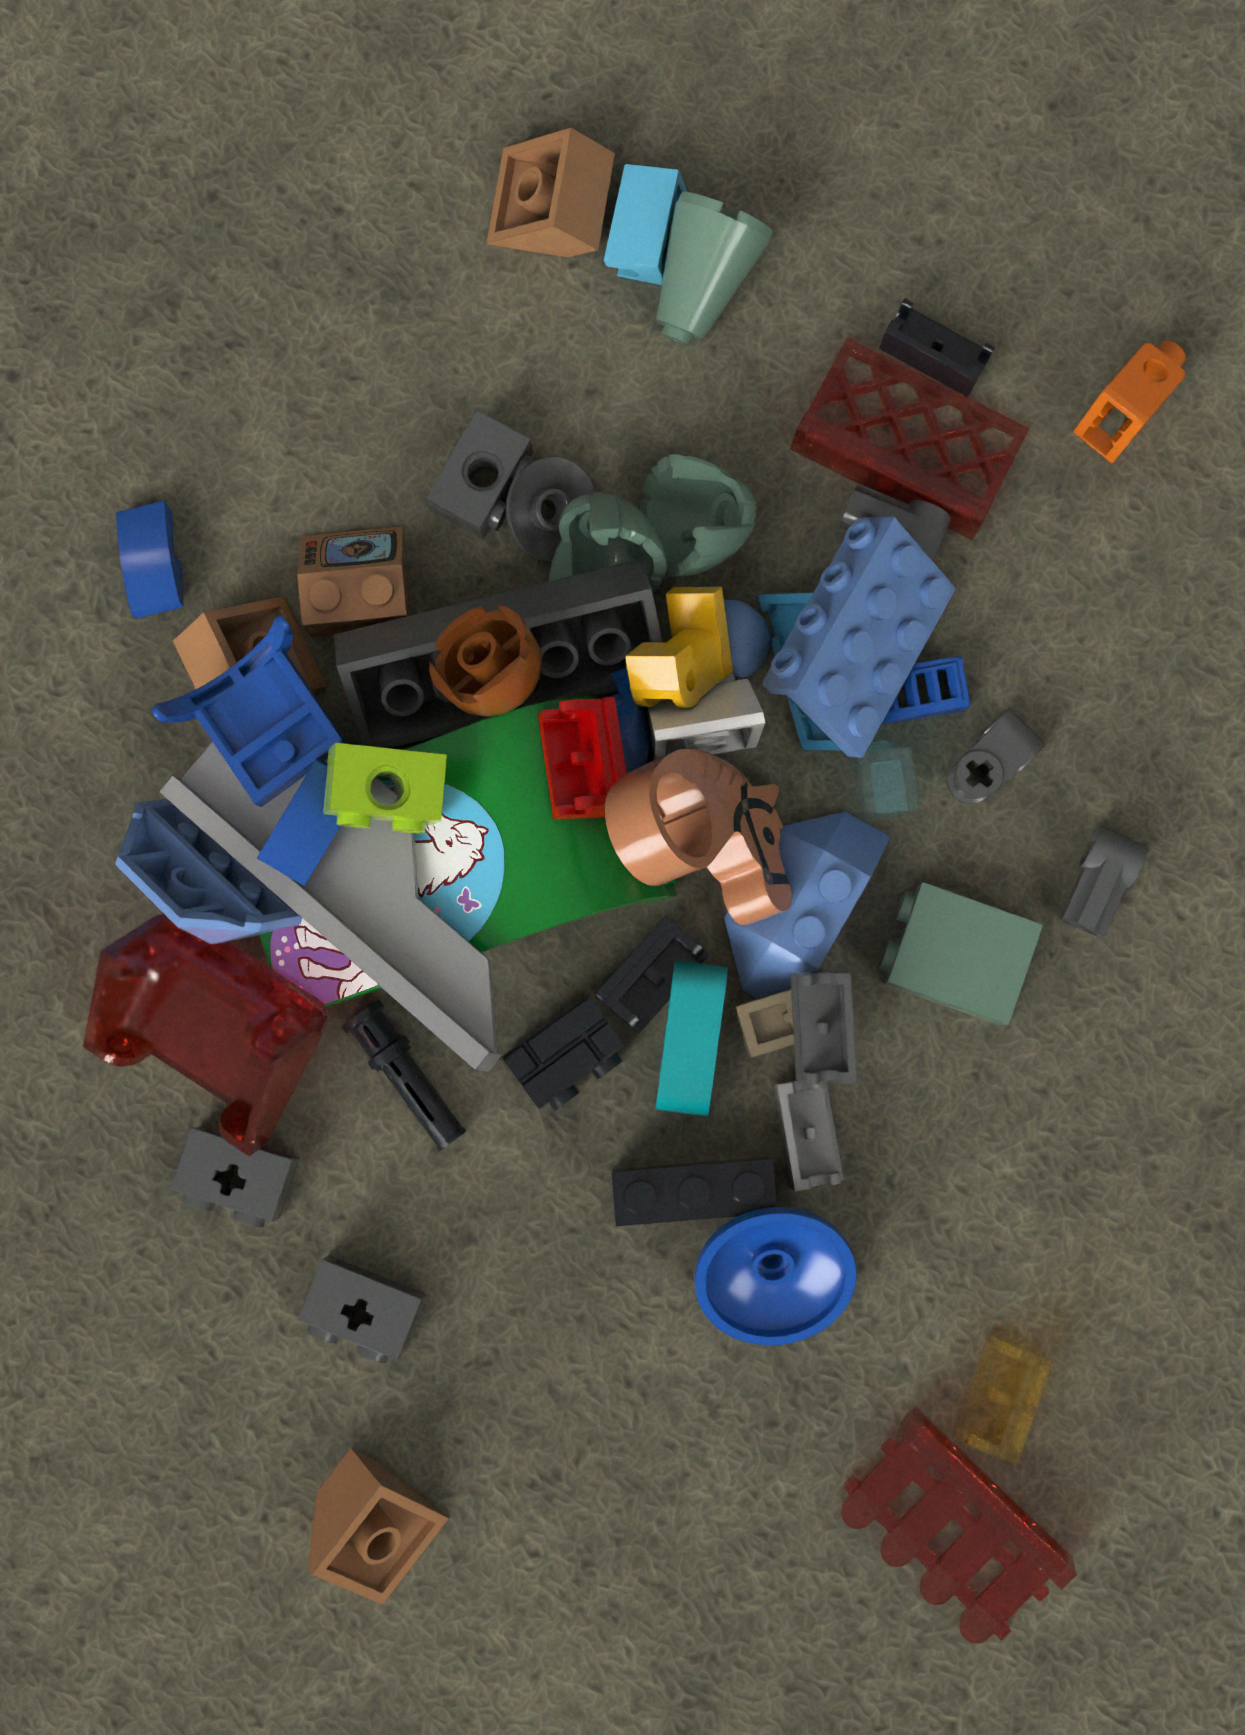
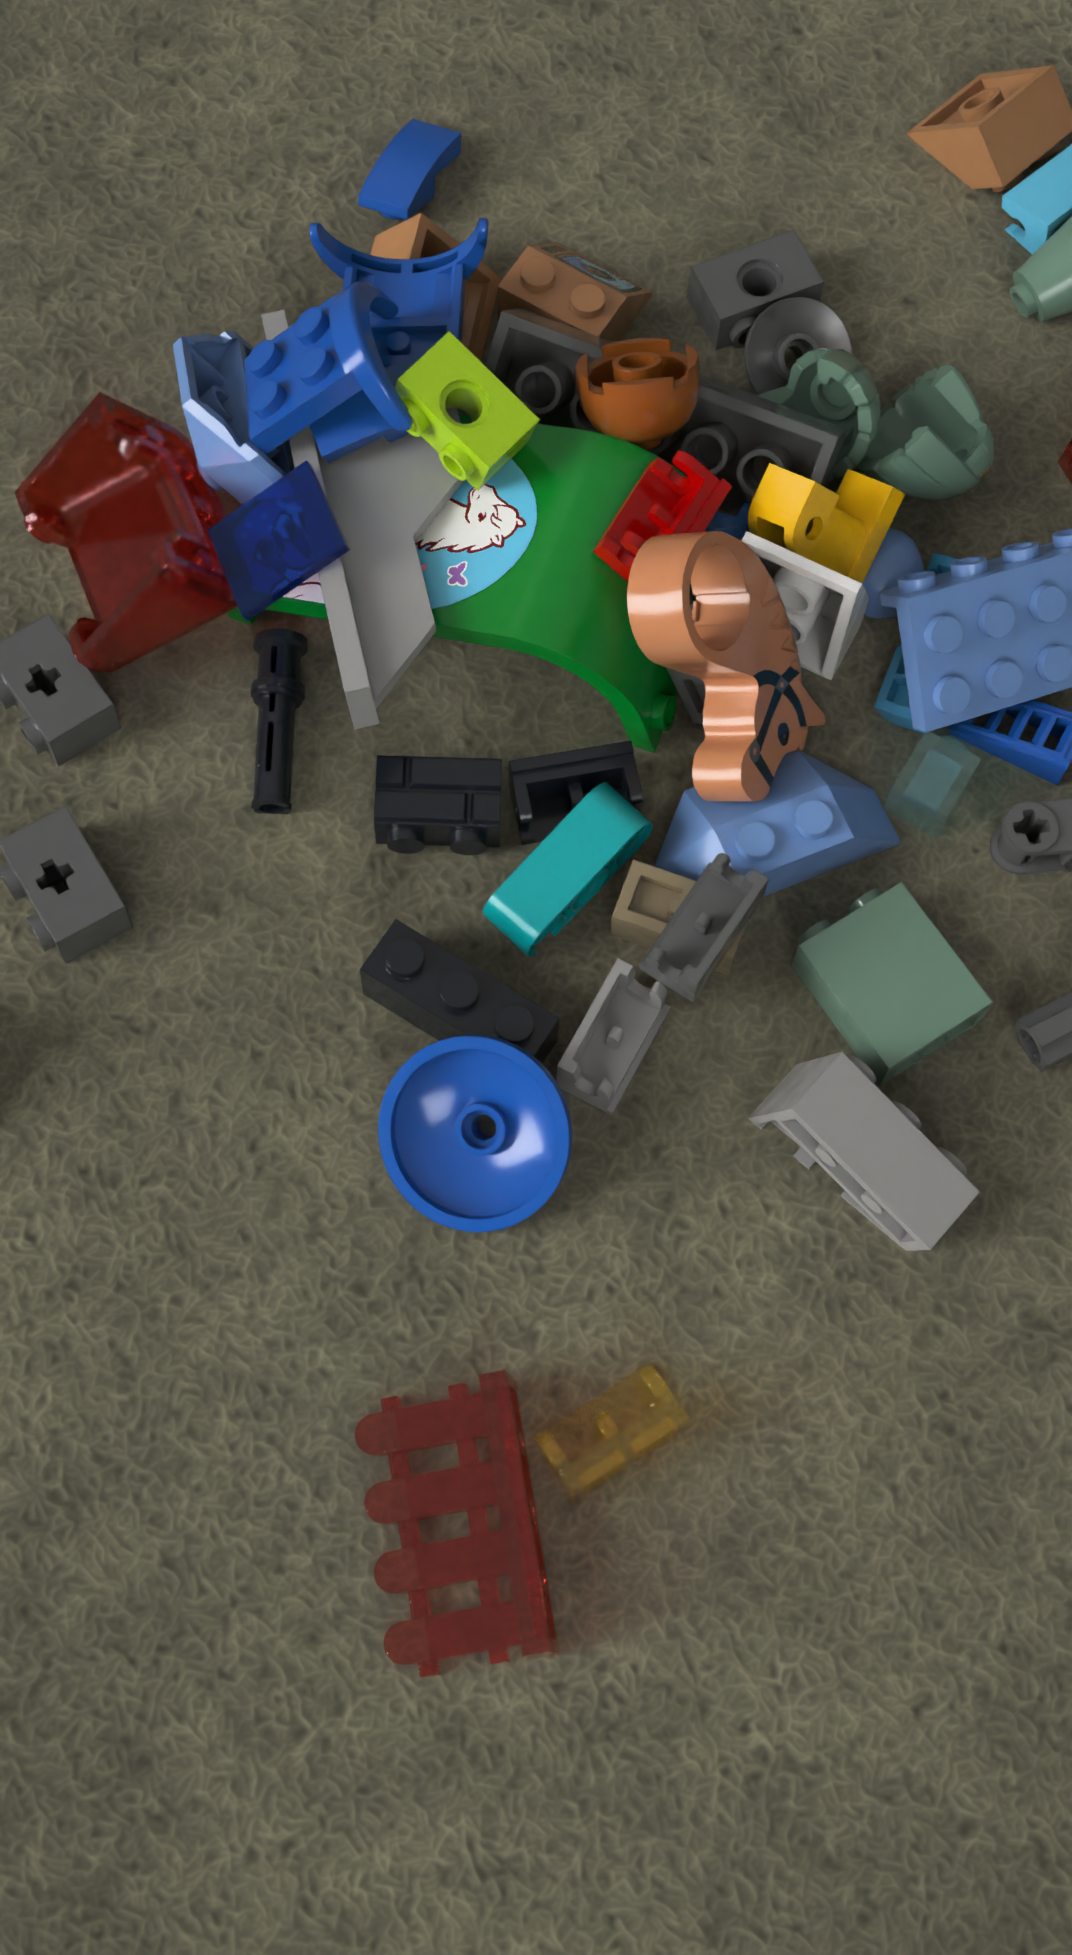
camera: 30 degrees right, 15 degrees down
(254, 828) = (320, 366): none -> blue piece
(326, 975) = (277, 540): none -> clear blue piece
(1030, 1087) = (869, 1149): none -> light grey wedge

